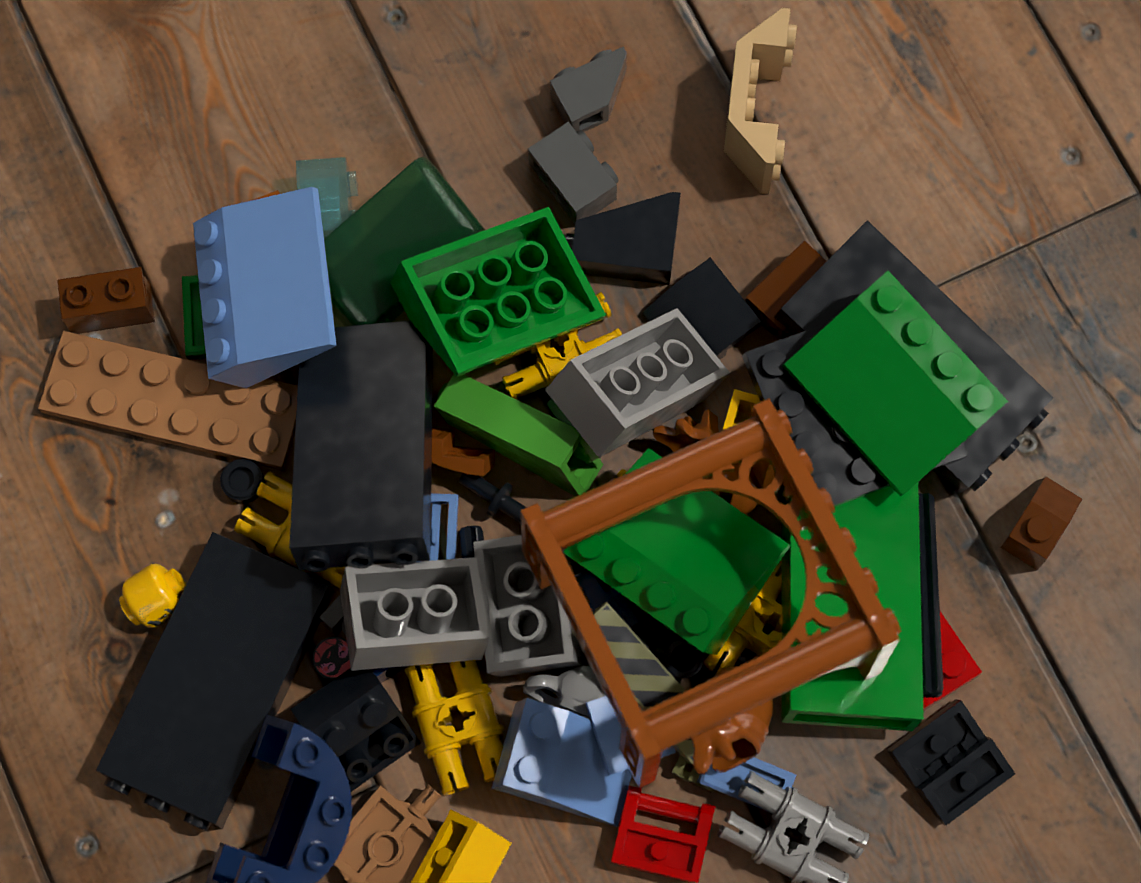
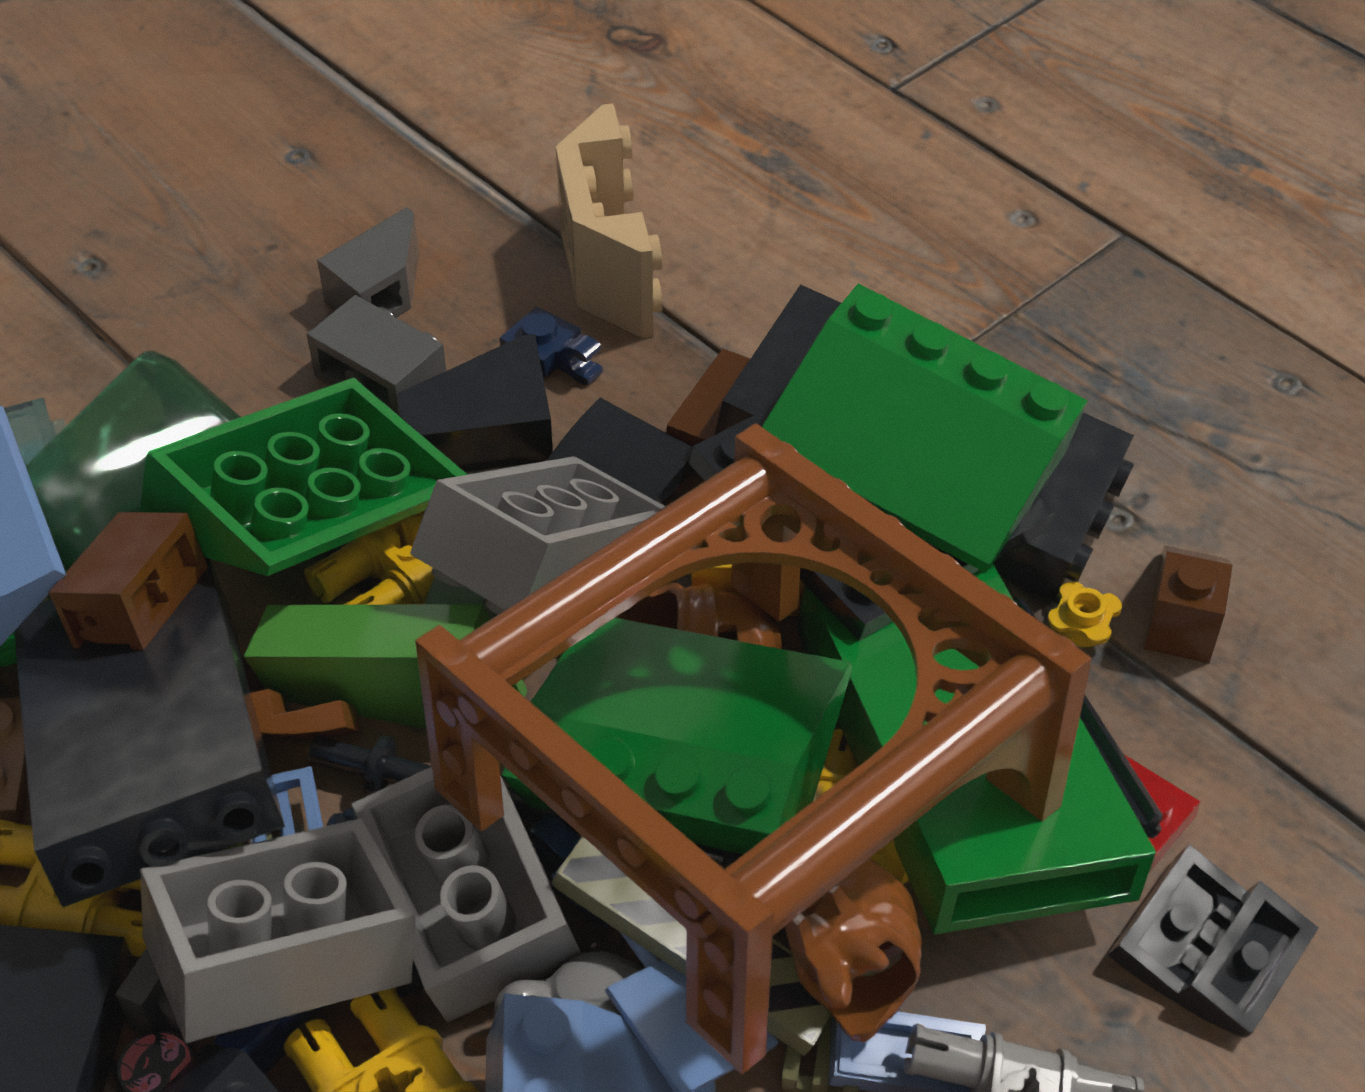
camera: 20 degrees left, 25 degrees down
(374, 348) = (129, 579): none -> reddish brown hinge
(696, 188) = (558, 345): none -> dark blue plate
(969, 527) = (1081, 627): none -> yellow plate

